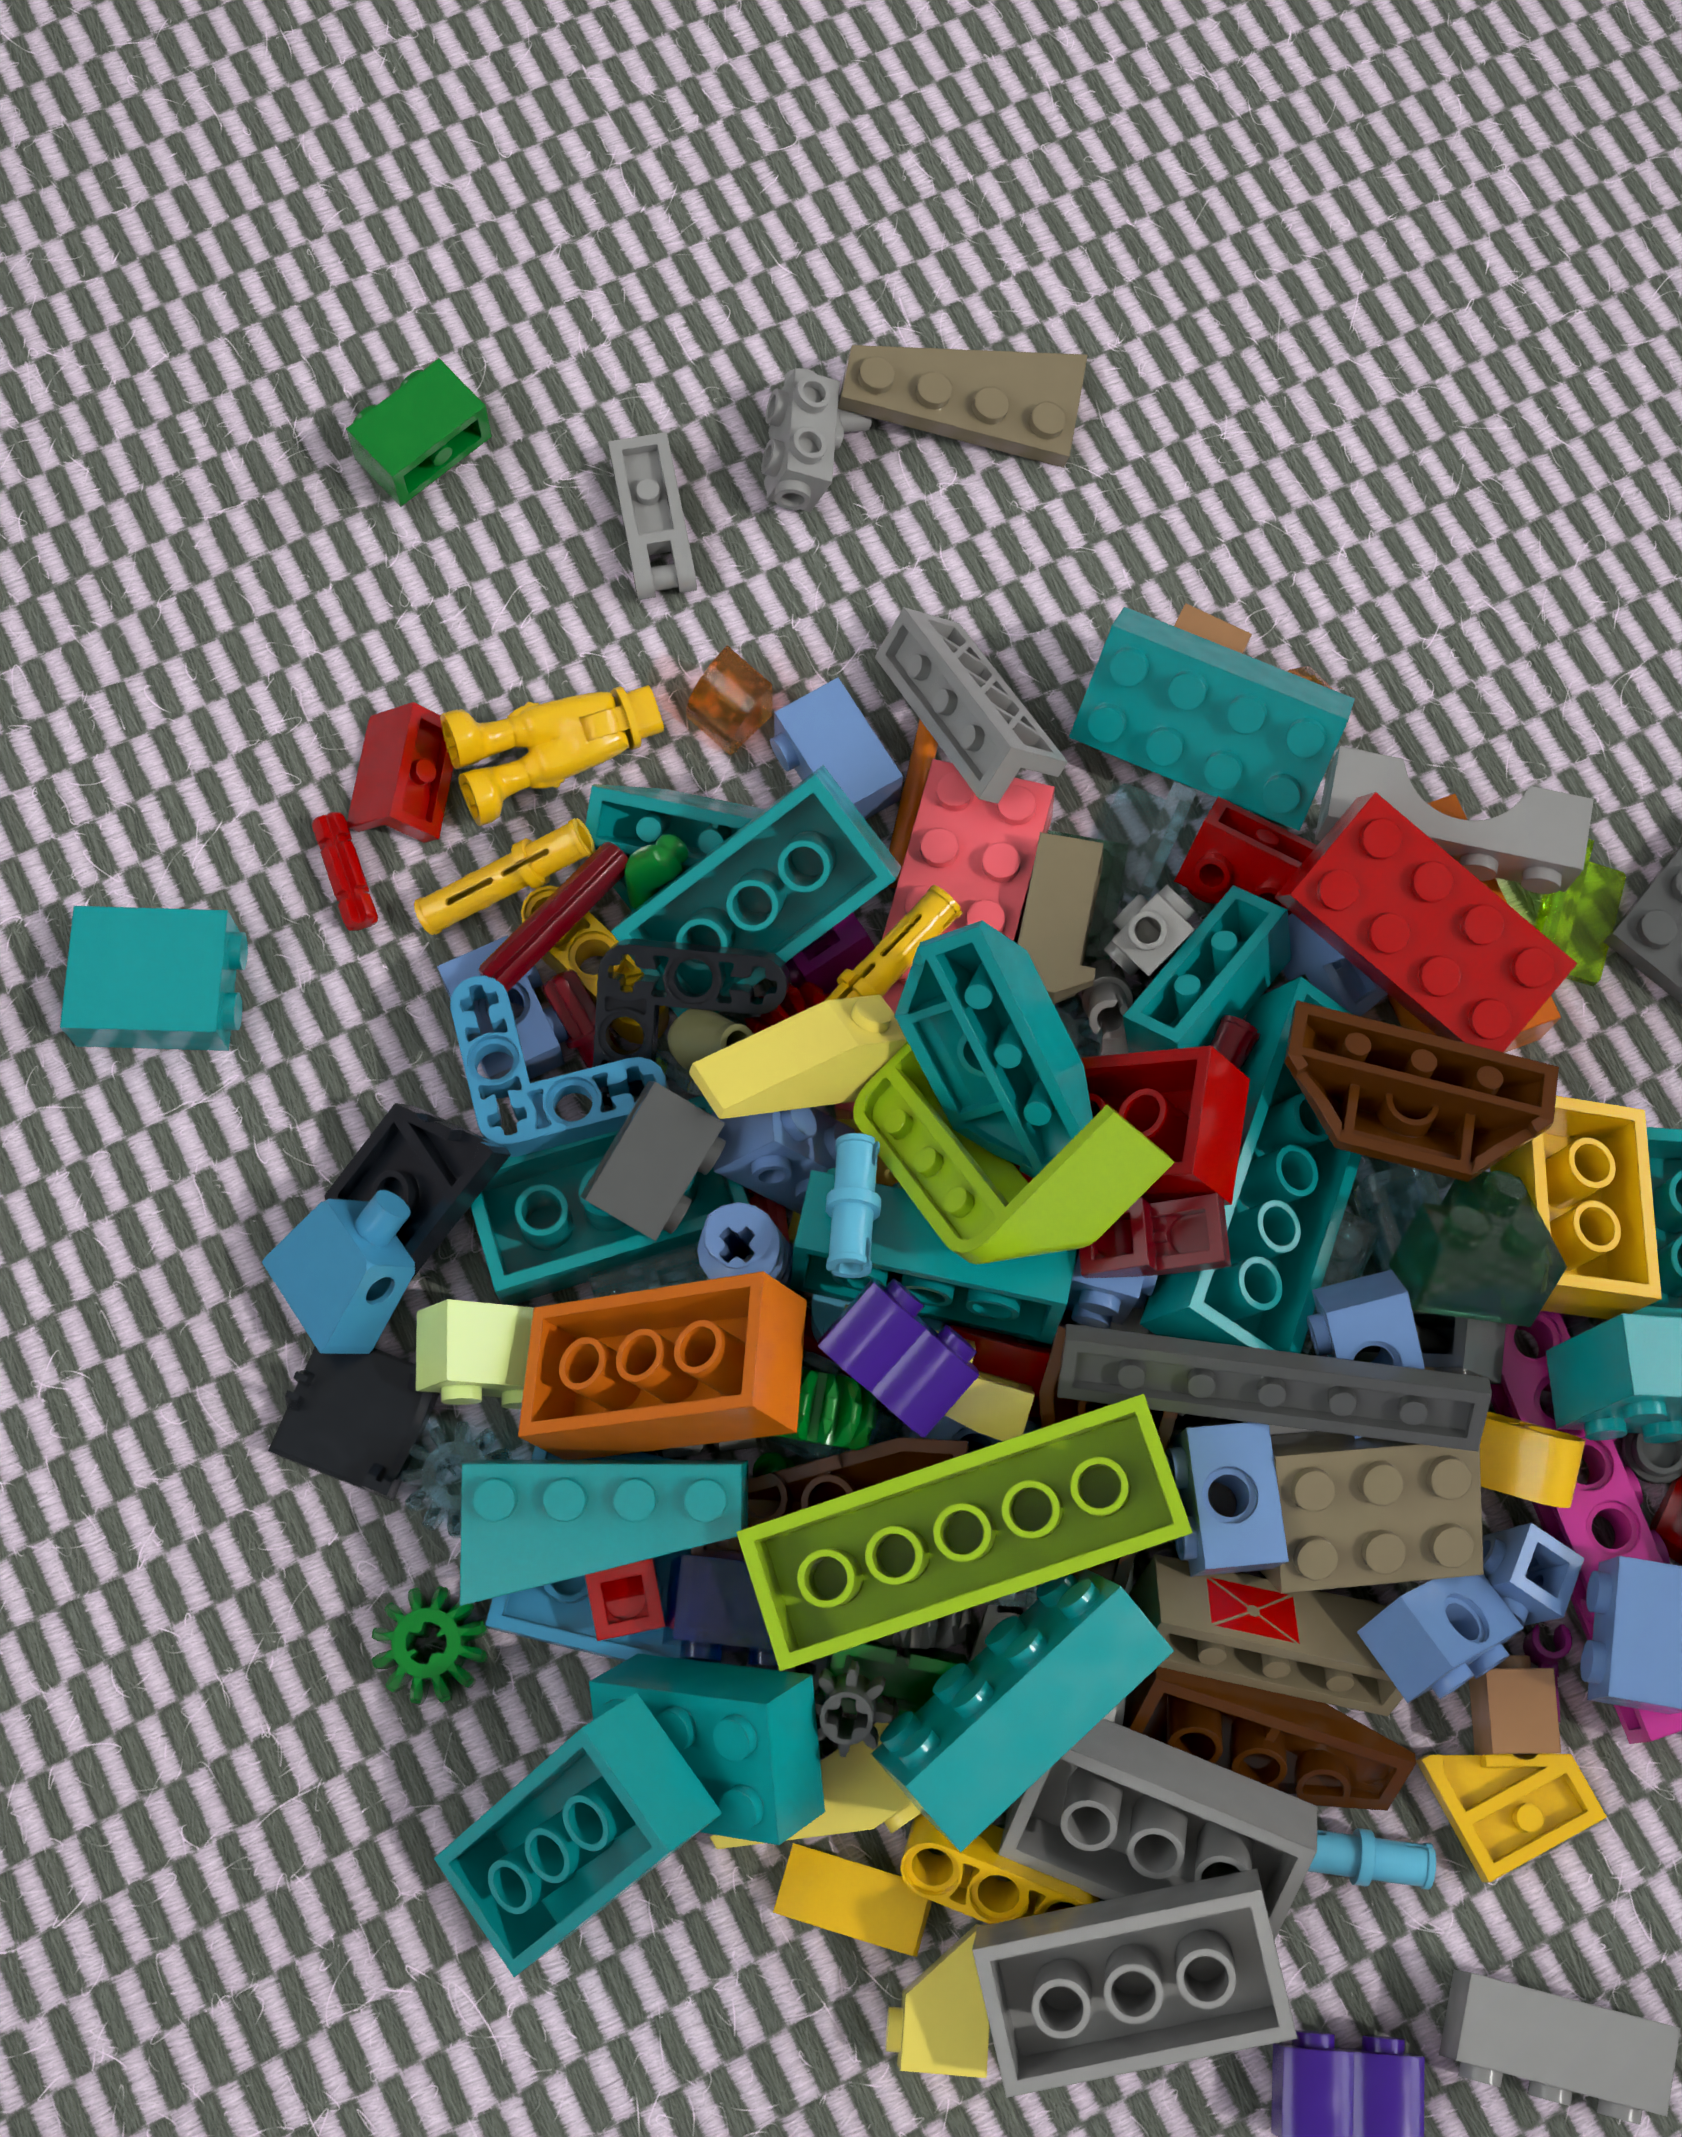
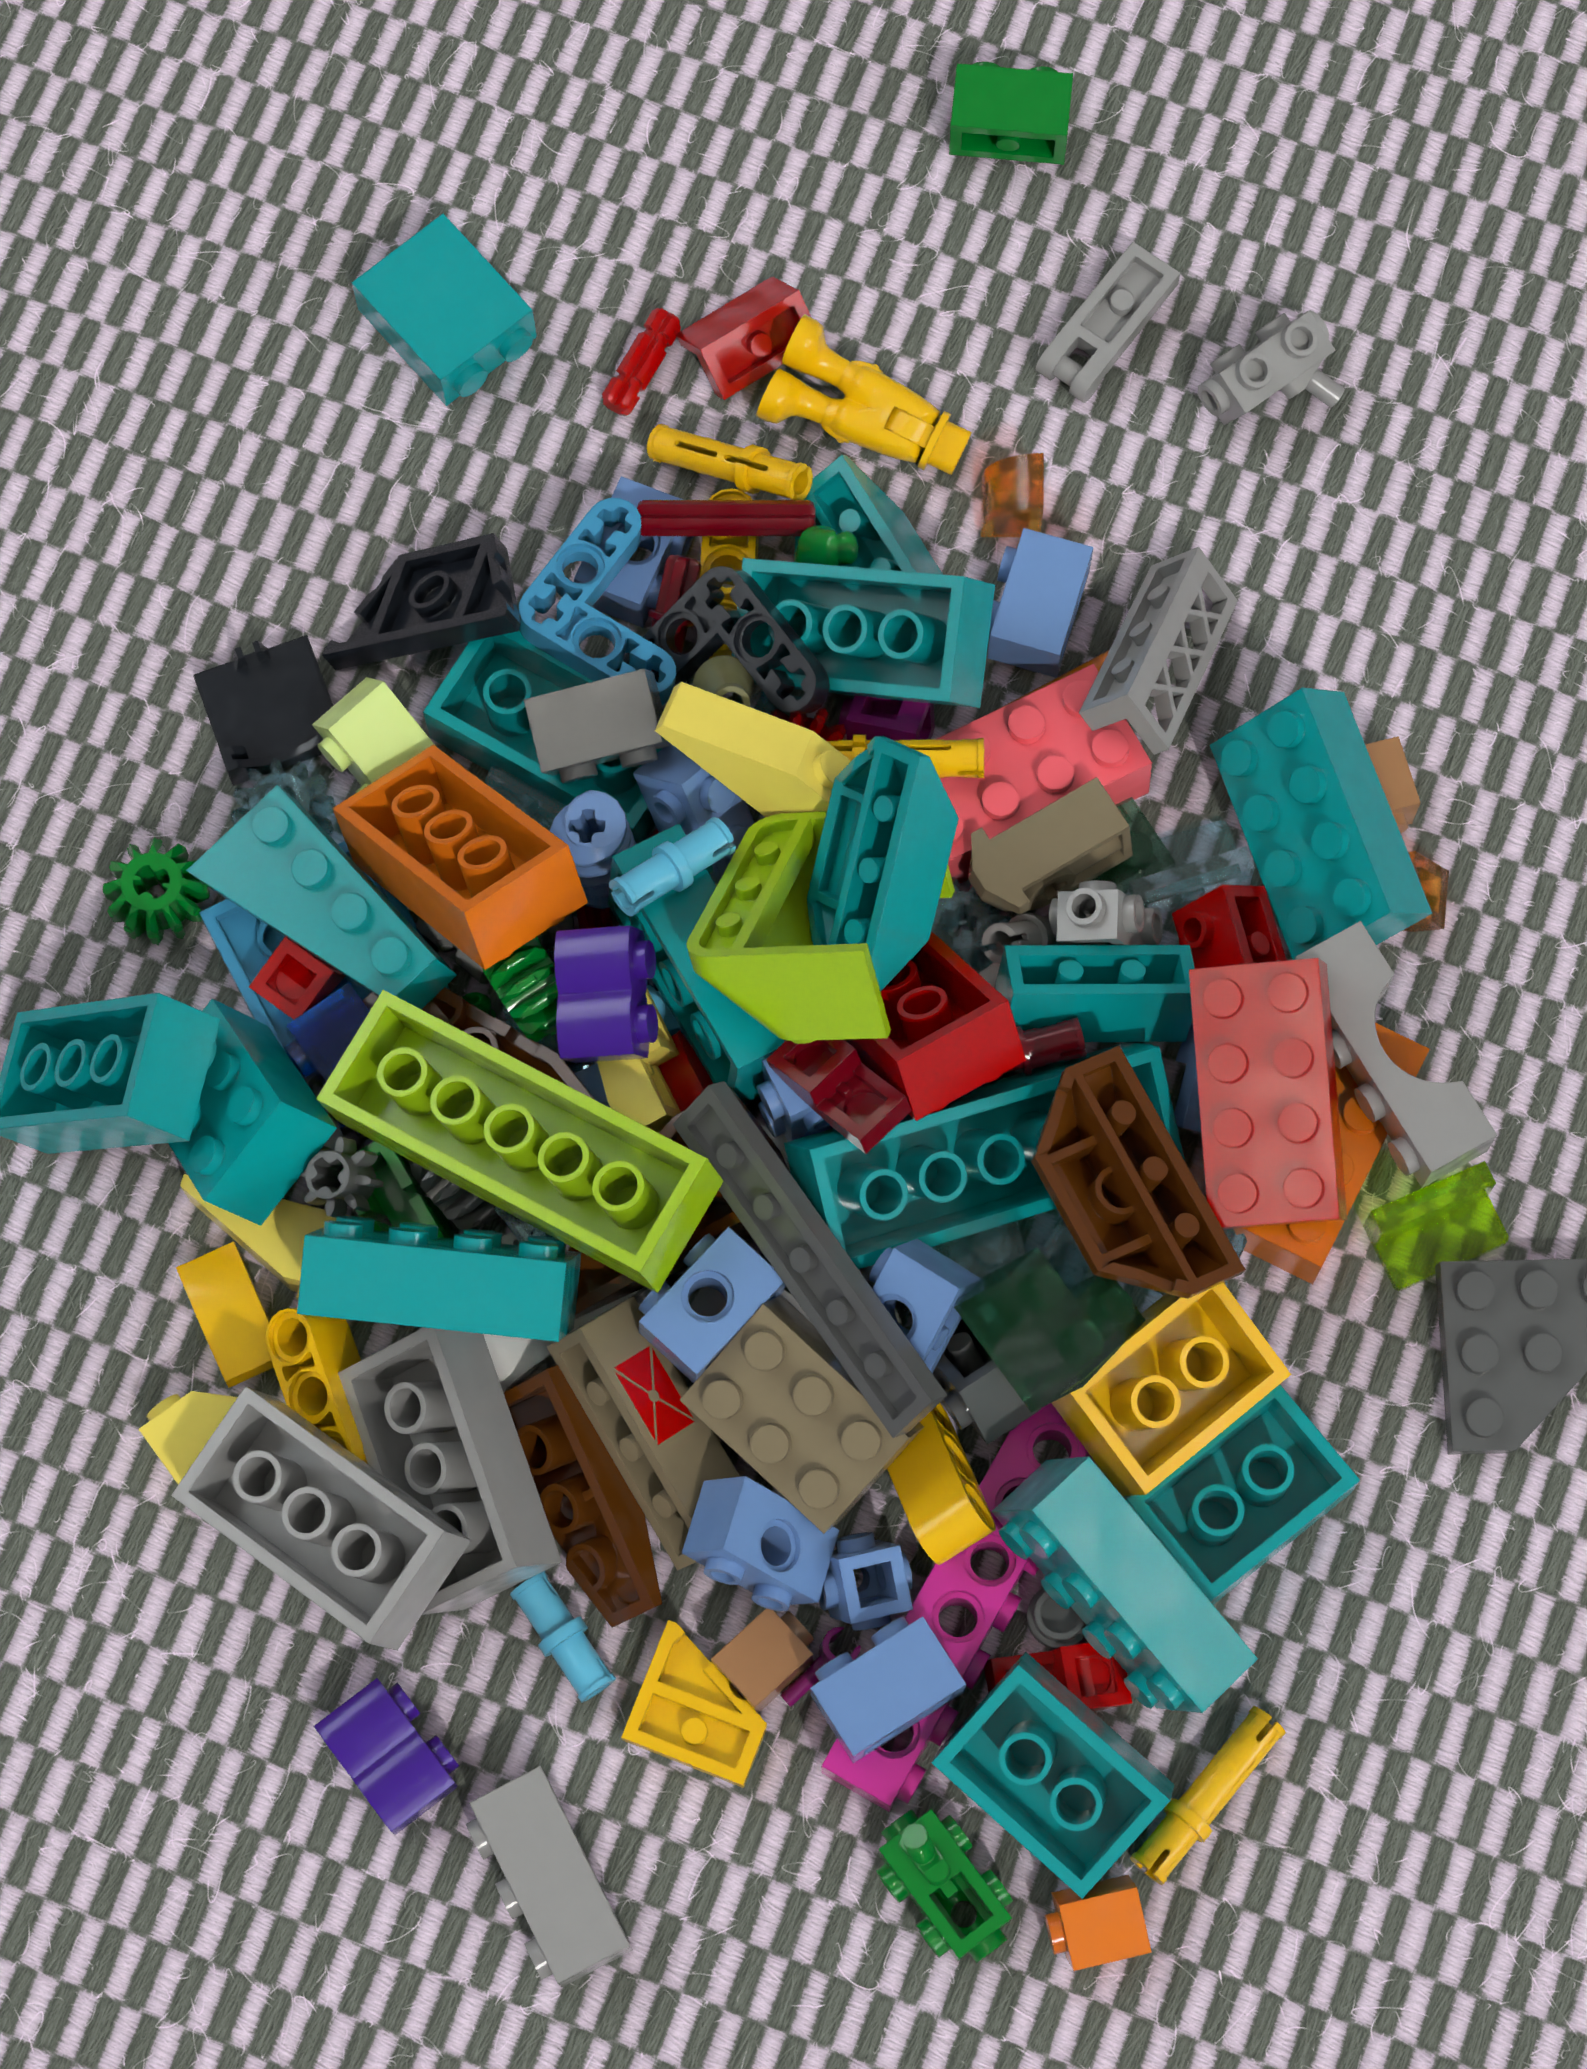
camera: 55 degrees right, 0 degrees up
(345, 1271) = (350, 608): dark azure torso -> none
(980, 397) = (1433, 460): dark tan wing -> none

